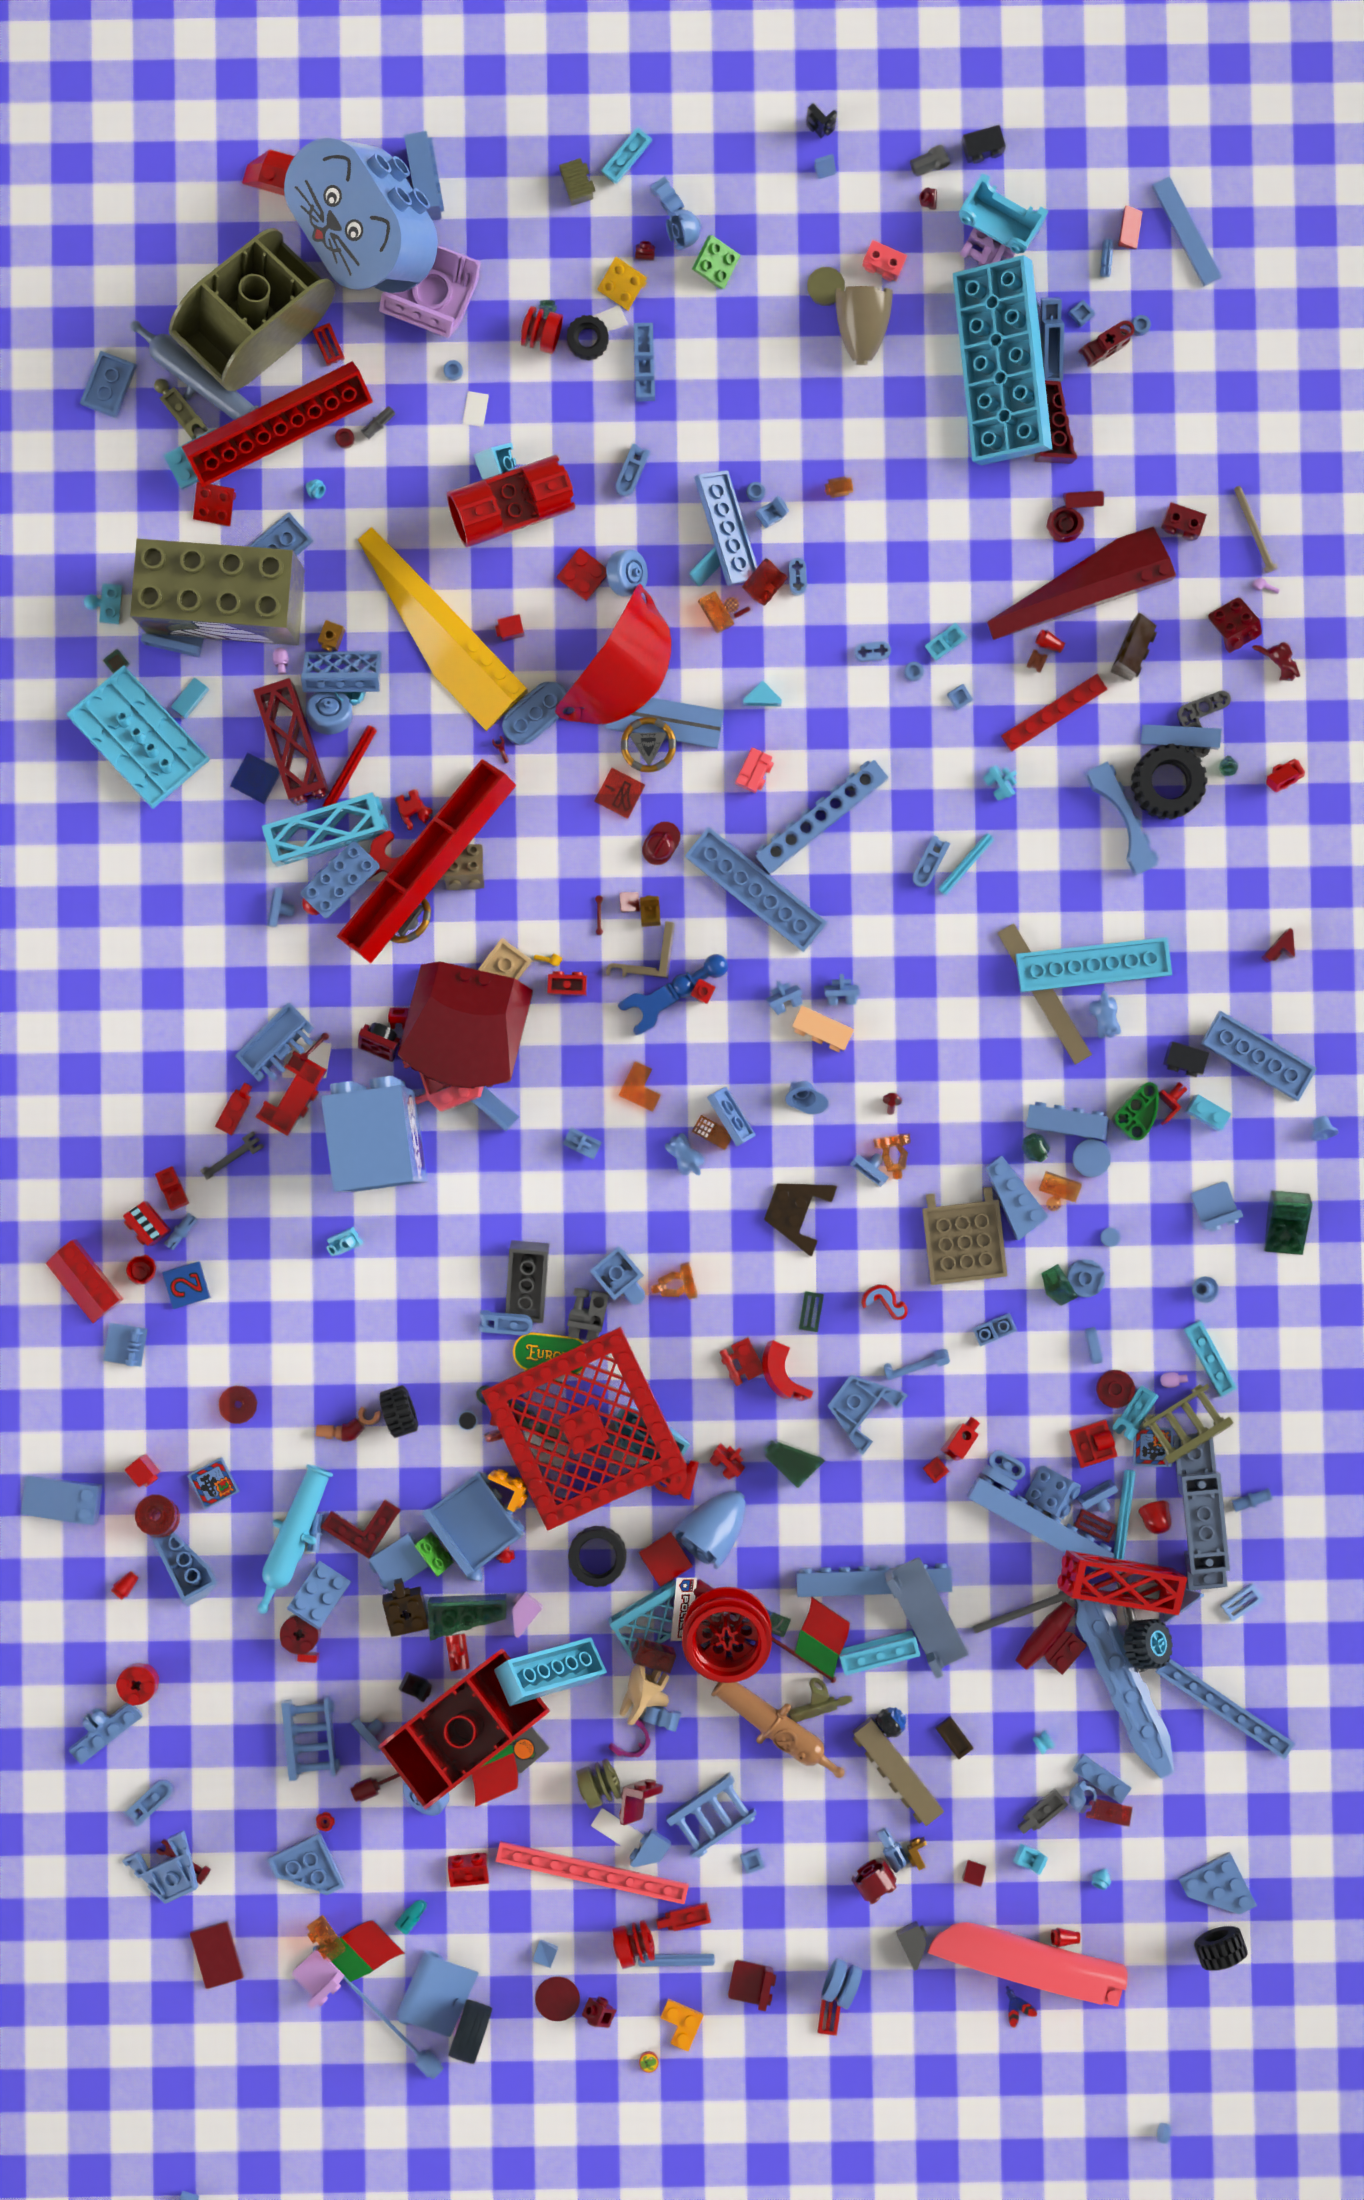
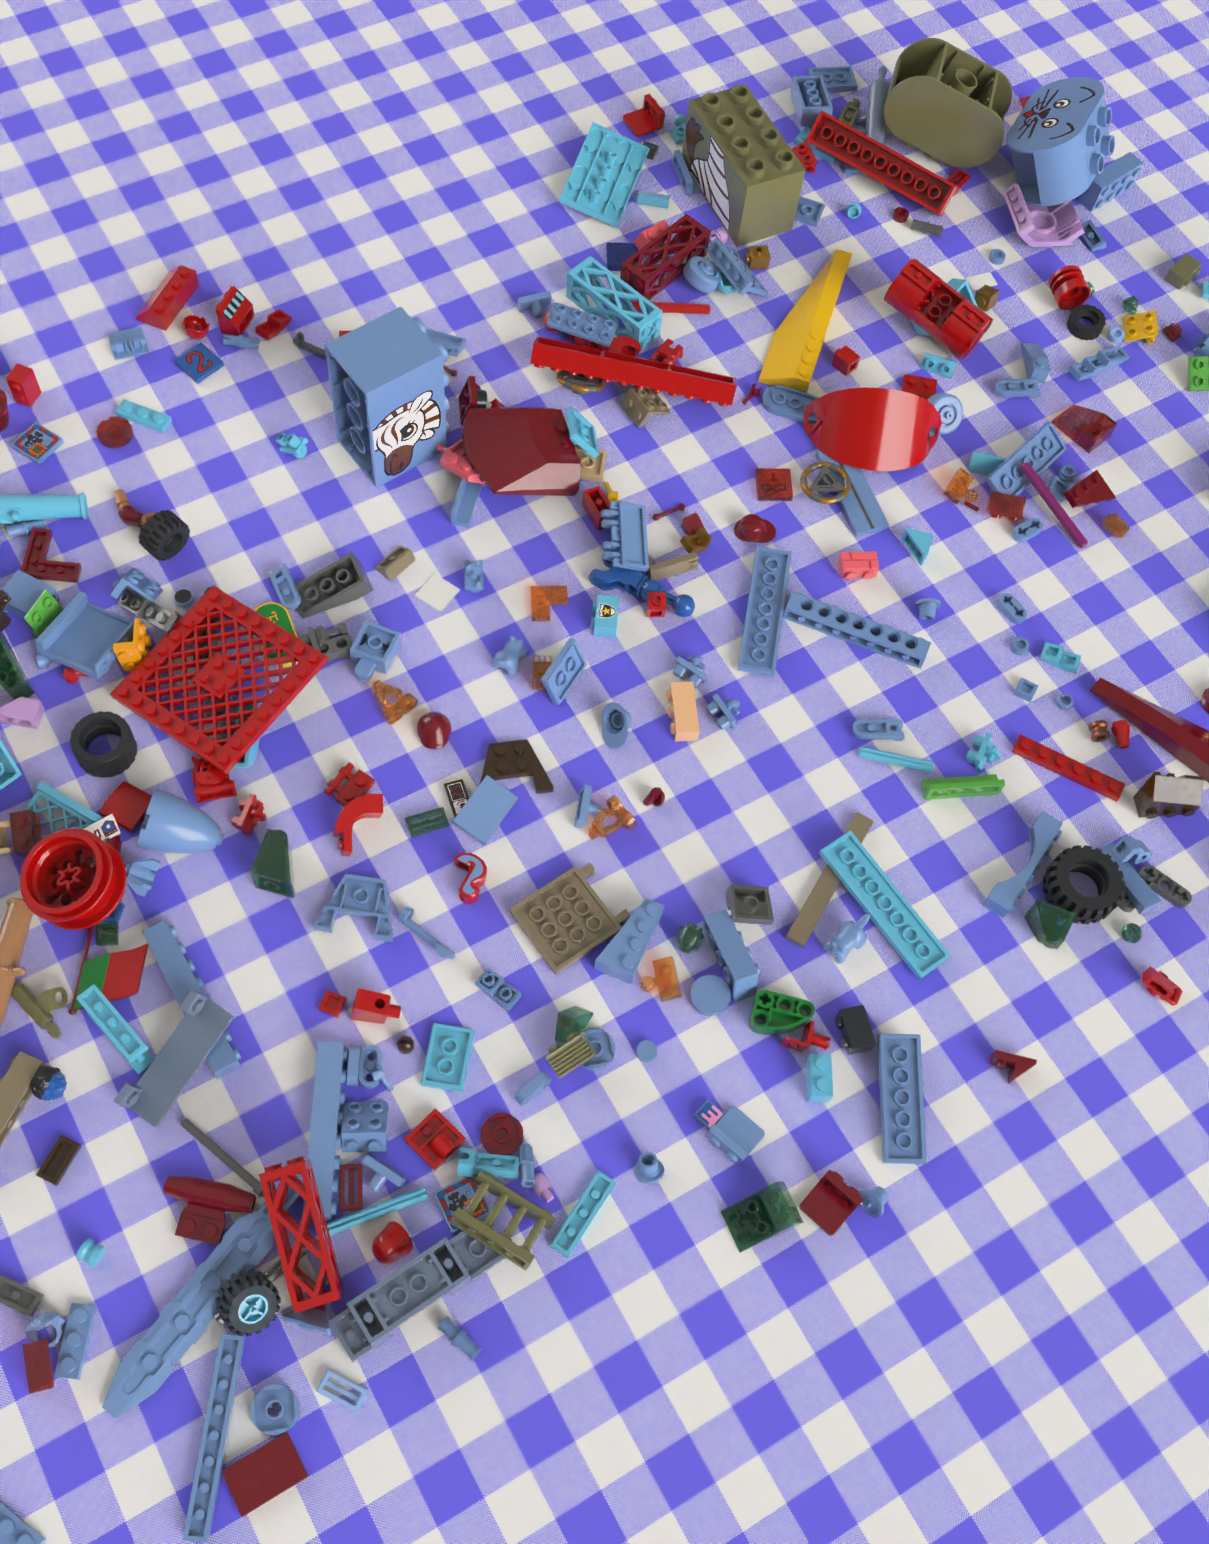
camera: 55 degrees right, 25 degrees down
(70, 641) = (647, 118): none -> red bracket
(142, 439) = (809, 98): none -> medium blue brick
(228, 1368) = (143, 416): none -> medium azure plate
(254, 735) = (649, 234): none -> coral brick
(441, 1457) = (136, 580): none -> medium blue bracket
(470, 1459) = (147, 610): none -> dark grey slope
(475, 954) = (582, 432): none -> medium azure plate
(477, 245) = (1093, 237): none -> medium blue slope
(507, 427) = (986, 297): none -> pearl gold brick
(525, 1206) = (395, 562): none -> dark tan slope
(569, 528) = (938, 365): none -> medium azure hinge
(577, 1183) = (437, 592): none -> white sticker
(588, 271) = (1131, 304): none -> plate
(608, 428) = (1035, 362): none -> medium blue slope
(617, 315) = (1116, 335): none -> light blue tile
(622, 977) = (630, 530): none -> medium blue hinge
(688, 1043) = (606, 616): none -> medium azure brick
(712, 436) = (1085, 426): none -> clear red slope
(725, 1261) = (434, 730): none -> dark red hat
(744, 1575) = (141, 875): none -> medium blue brick
(787, 534) = (1054, 505): none -> magenta axle
(791, 488) = (1089, 490): none -> dark red wing
(804, 1273) = (456, 795): none -> tile
(828, 1257) = (485, 810): none -> medium blue tile
(834, 735) = (928, 608): none -> medium blue piece
(992, 663) = (1068, 698): none -> medium blue piece
(997, 1426) = (405, 1048): none -> dark brown hinge
(1020, 1462) = (377, 1074): none -> medium blue hand
(1022, 822) = (962, 786): none -> bright green fence
(1030, 1399) = (447, 1057): none -> medium azure tile
(1036, 1081) = (749, 904): none -> flat silver plate
(1085, 1302) = (570, 1054): none -> olive brick
(1152, 1383) = (527, 1166): none -> medium blue axle
(1160, 717) = (1133, 849): none -> medium blue leg
(1187, 1217) = (708, 1114): none -> tile
(1189, 837) = (1049, 923): none -> clear green slope
(1233, 1667) = (264, 1401): none -> medium blue plate
(1269, 1683) = (264, 1474): none -> dark red tile
(1306, 1164) = (830, 1202): none -> dark red bracket

